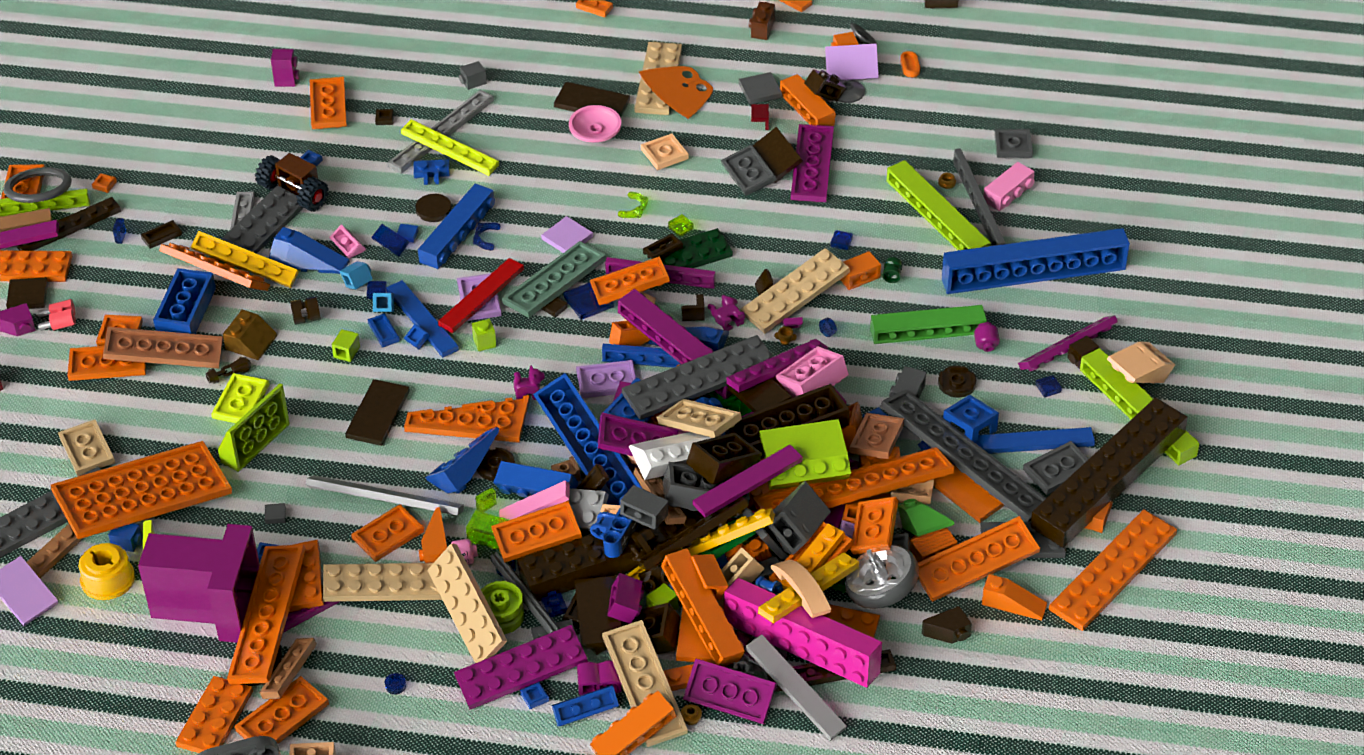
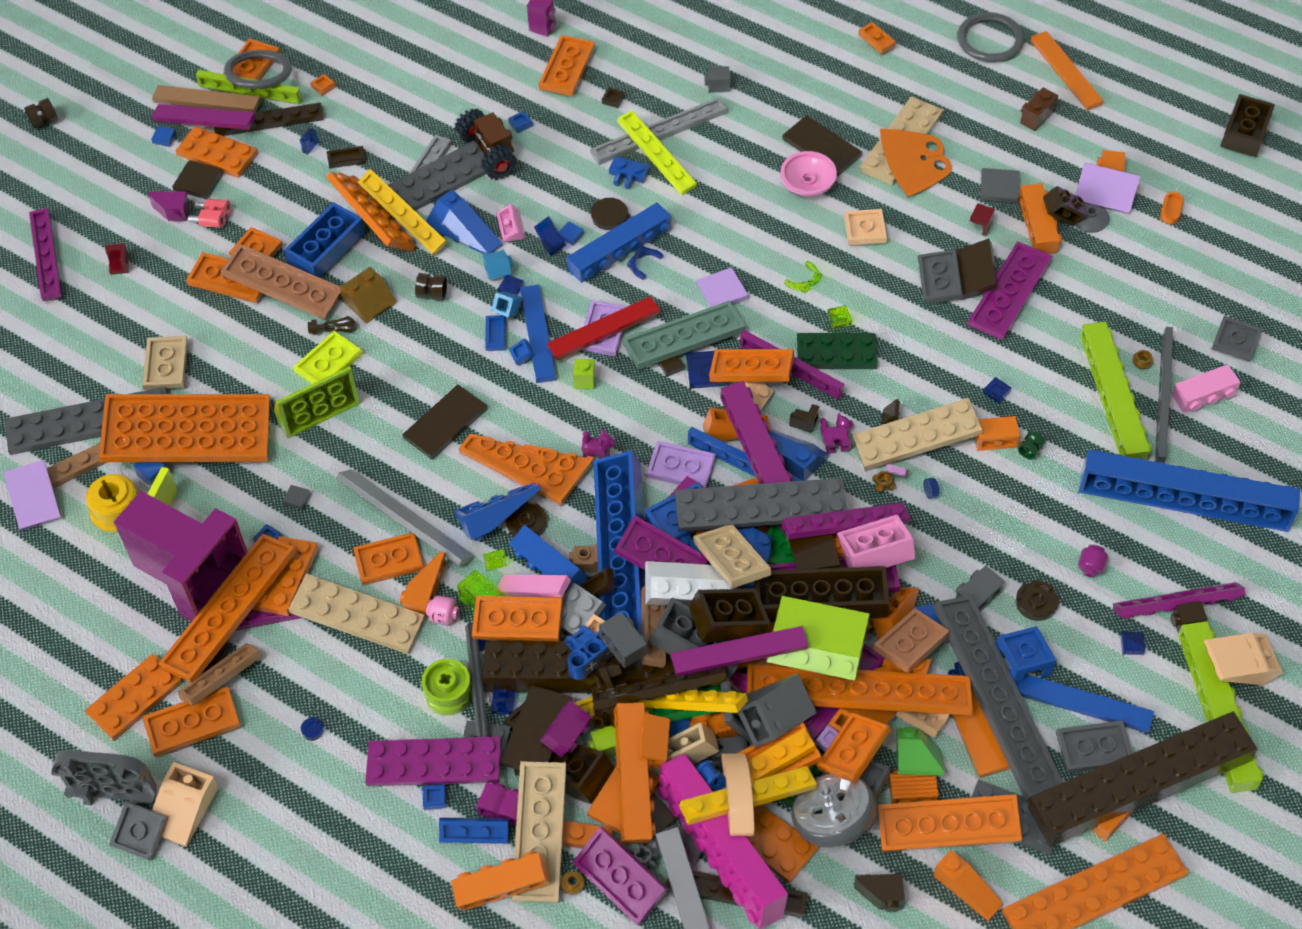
camera: 25 degrees right, 10 degrees up
(346, 345) = (450, 338): lime brick -> none
(467, 604) = (412, 674): tan plate -> none
(664, 248) = (807, 340): dark brown tile -> none
(861, 35) = (1135, 158): dark grey dish -> none
(926, 324) = (1037, 522): bright green brick -> none

